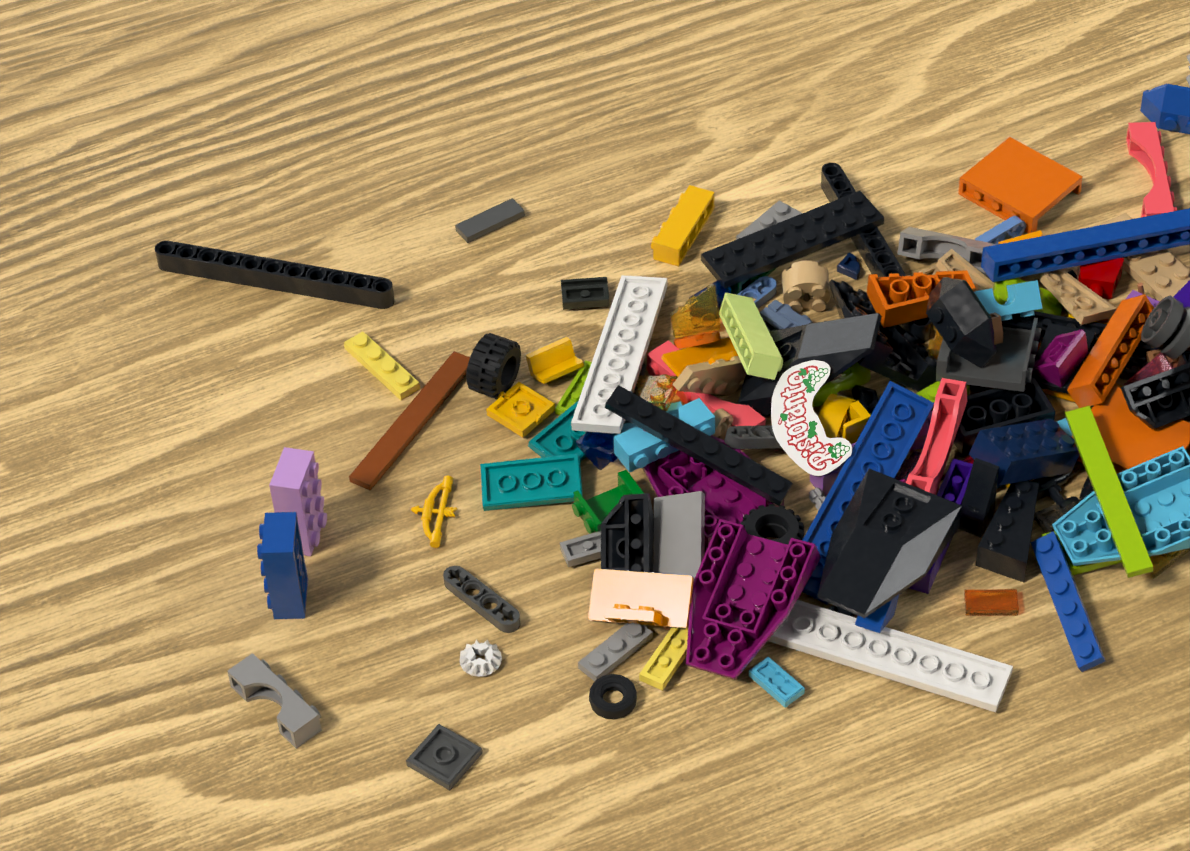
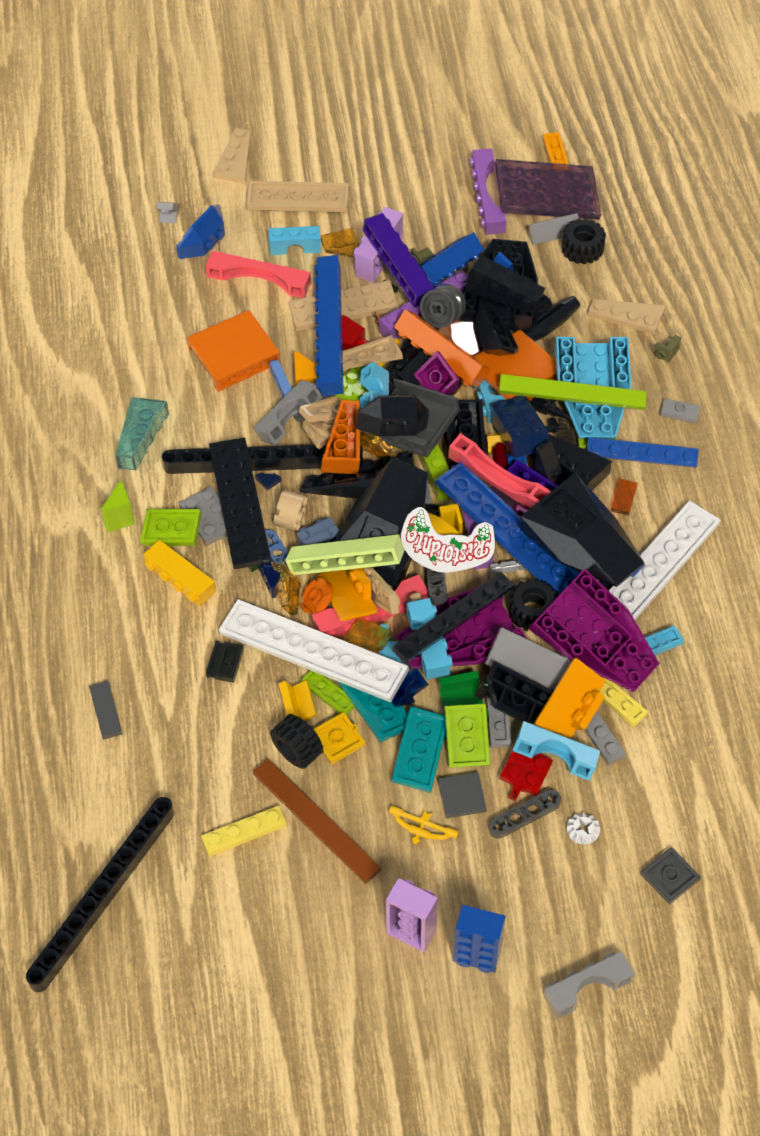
camera: 75 degrees left, 10 degrees up
(487, 537) = (462, 795): none -> dark grey tile
(541, 587) = (525, 773): none -> red plate
(558, 513) = (467, 735): none -> lime plate
(570, 572) = (535, 740): none -> medium azure arch
(612, 710) = (649, 737): black tyre -> none
(739, 200) = (171, 526): none -> lime plate
(741, 149) = (117, 510): none -> lime slope
(858, 140) = (138, 432): none -> clear light blue wedge
(1167, 634) = (680, 410): none -> light grey plate

